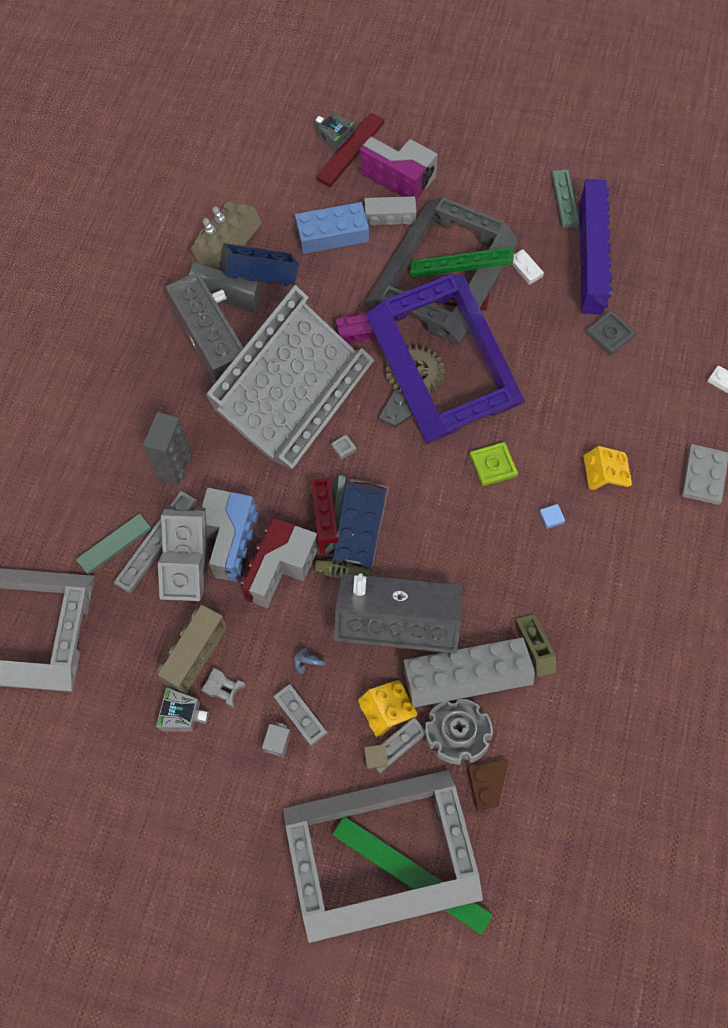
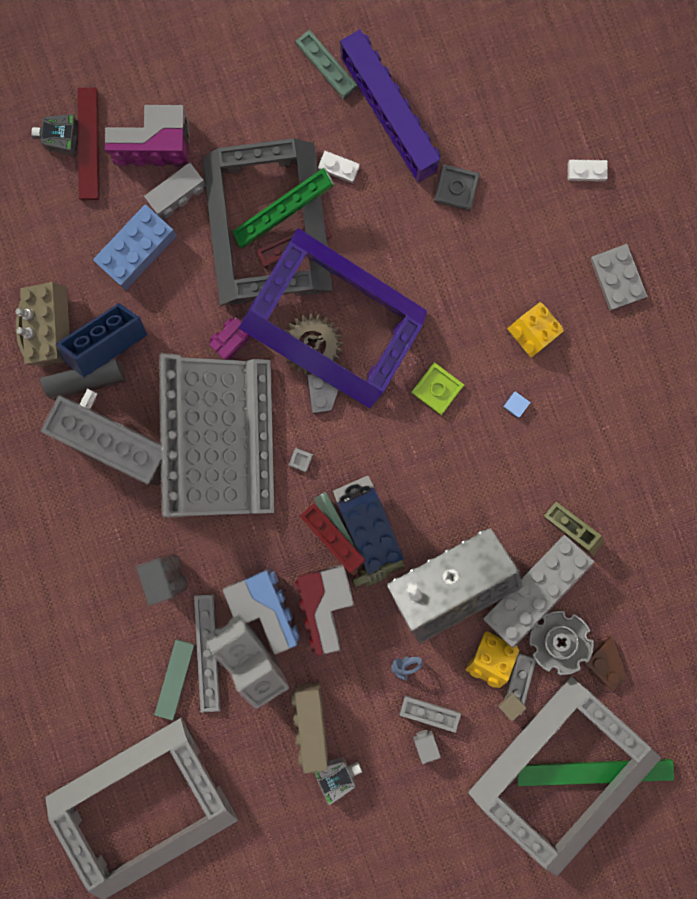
camera: 30 degrees left, 20 degrees up
(215, 683) = (346, 737): light grey piece -> none

